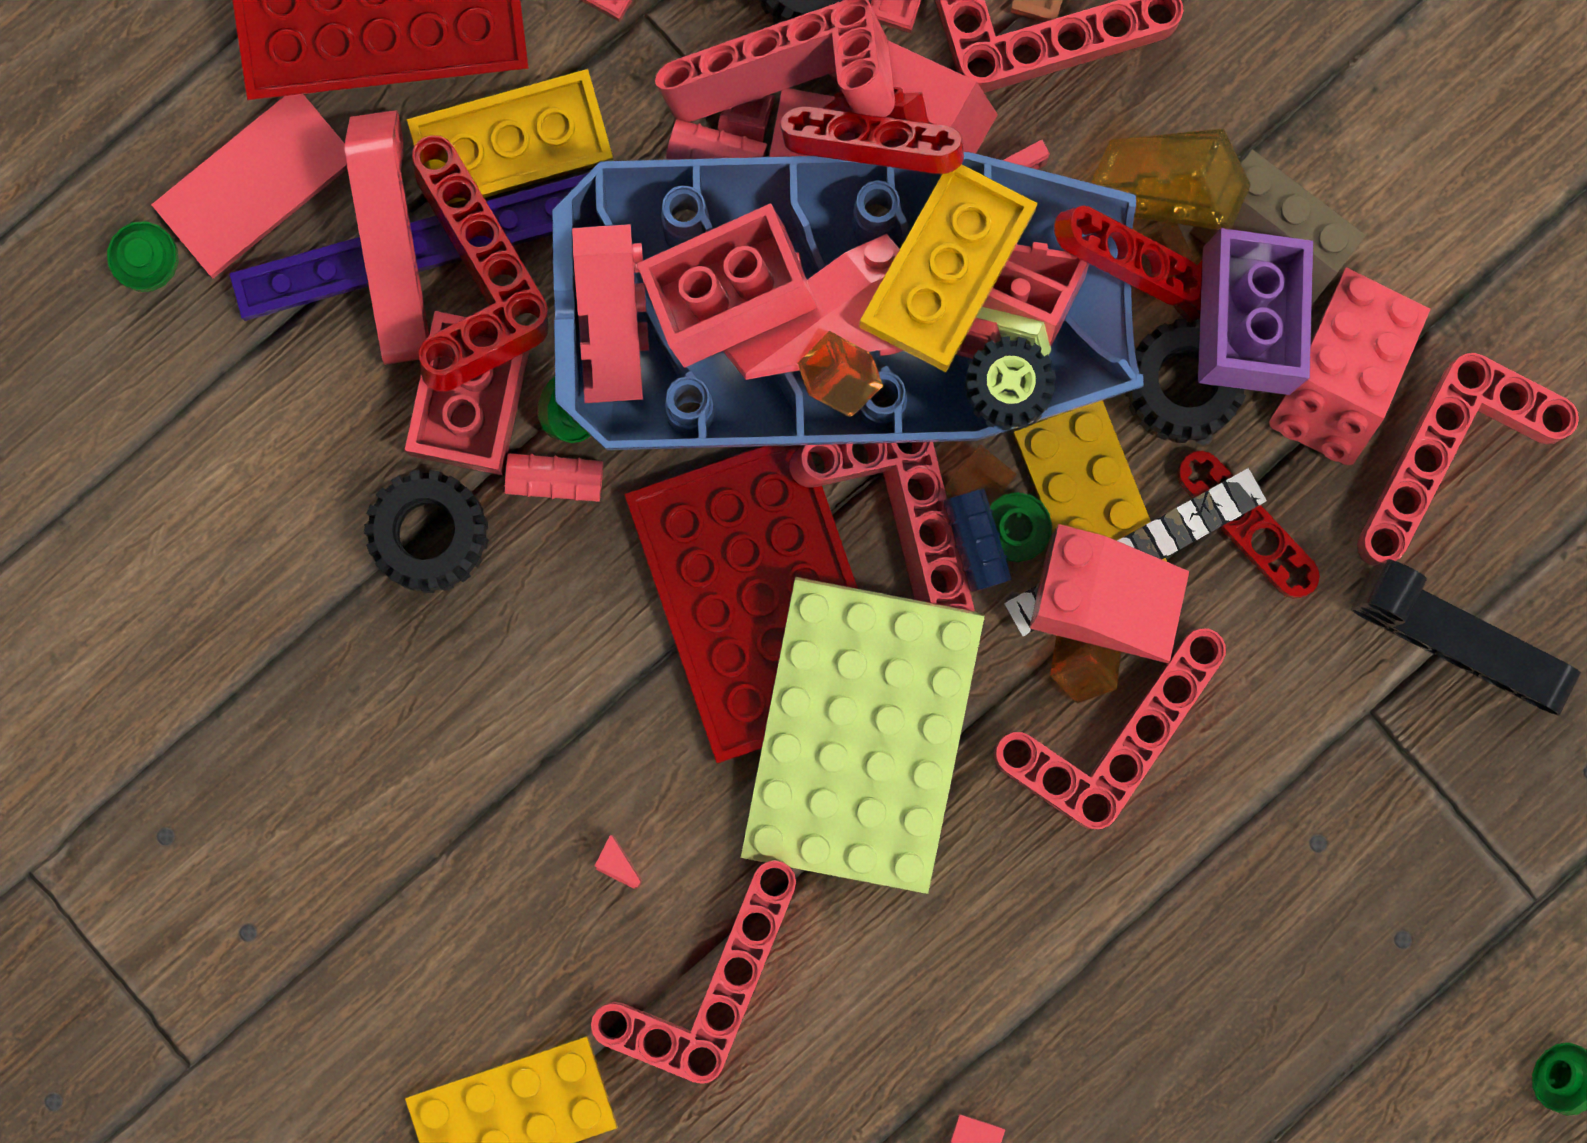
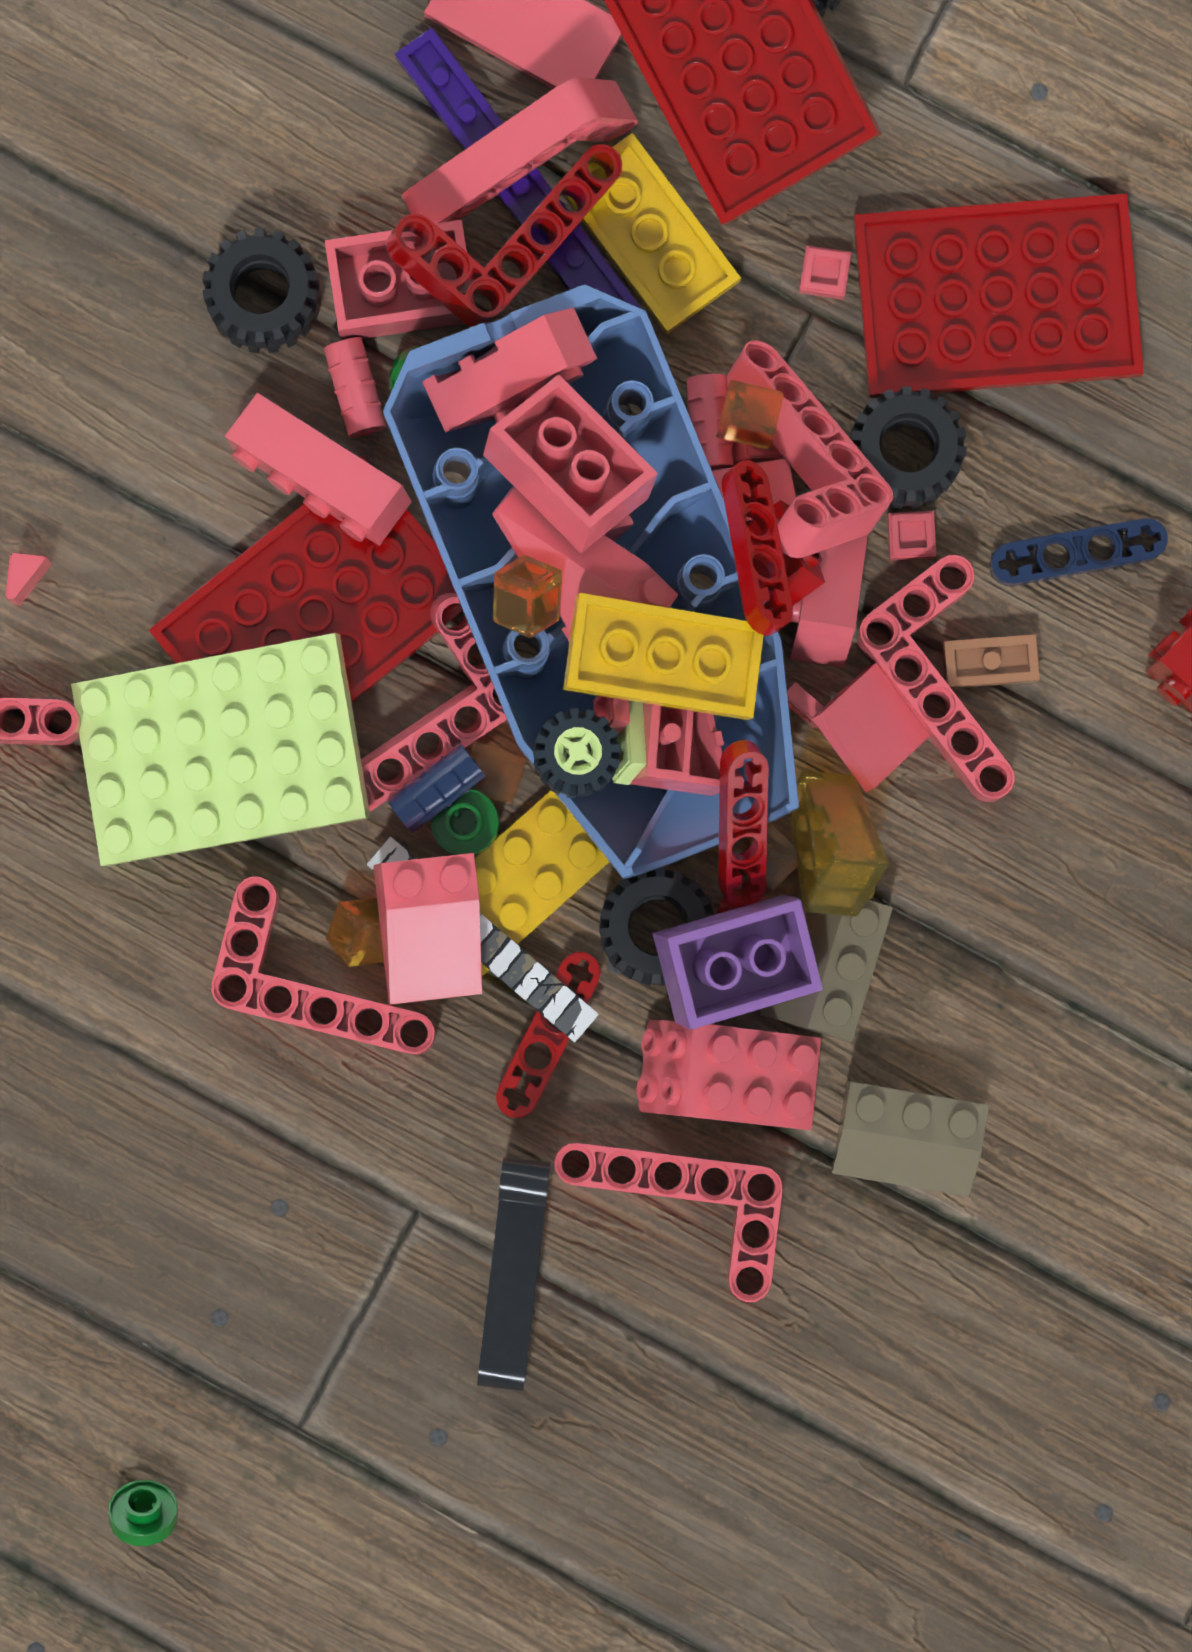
camera: 60 degrees right, 0 degrees up
(625, 540) = (318, 470): none -> coral brick
(729, 106) = (750, 414): none -> clear orange panel
(1069, 107) = (870, 727): none -> coral tile
(1472, 218) = (909, 1138): none -> dark tan slope

